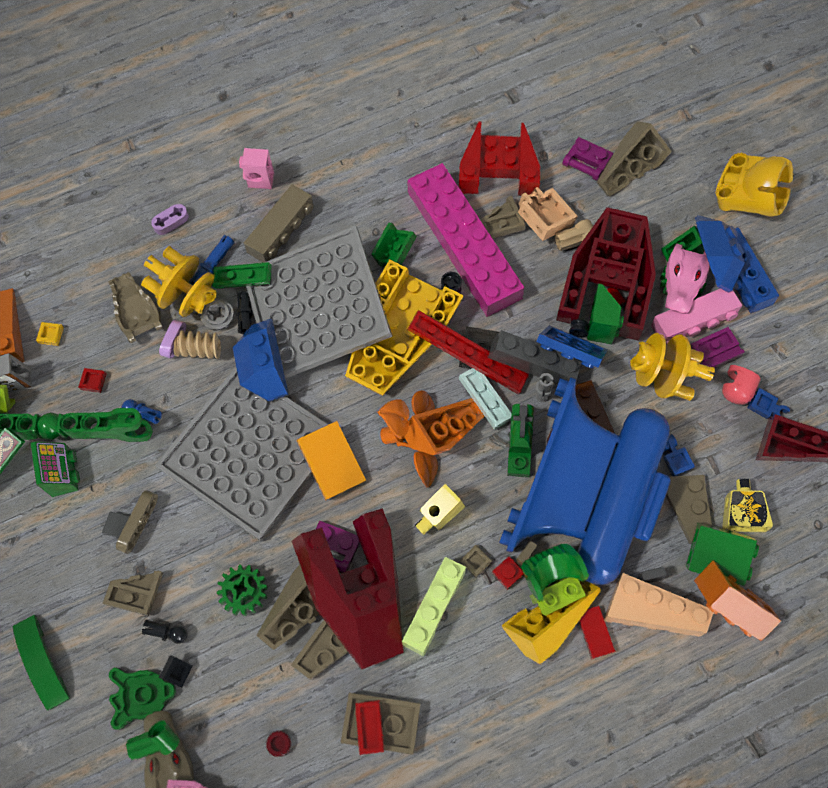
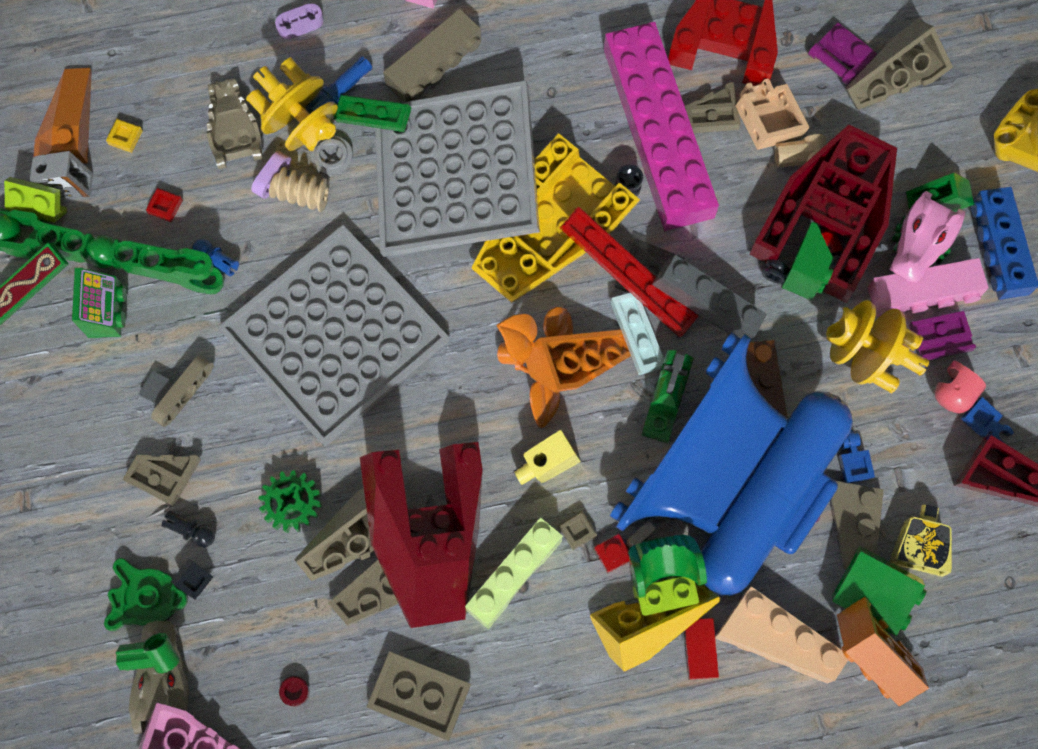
camera: 10 degrees right, 5 degrees up
(39, 663) = (34, 532): green slope -> none
(243, 312) = (364, 161): black pin -> none
(260, 362) = (371, 227): blue wedge -> none
(331, 460) = (430, 368): light orange tile -> none
(342, 543) = (420, 471): magenta plate -> none
(369, 727) = (404, 698): red tile -> none
(393, 245) = (568, 115): green bracket -> none
(542, 387) = (708, 335): light grey pin -> none
(572, 346) = (759, 293): blue plate -> none
(652, 575) = (787, 597): dark grey tile -> none
(721, 251) = (978, 213): blue wedge -> none

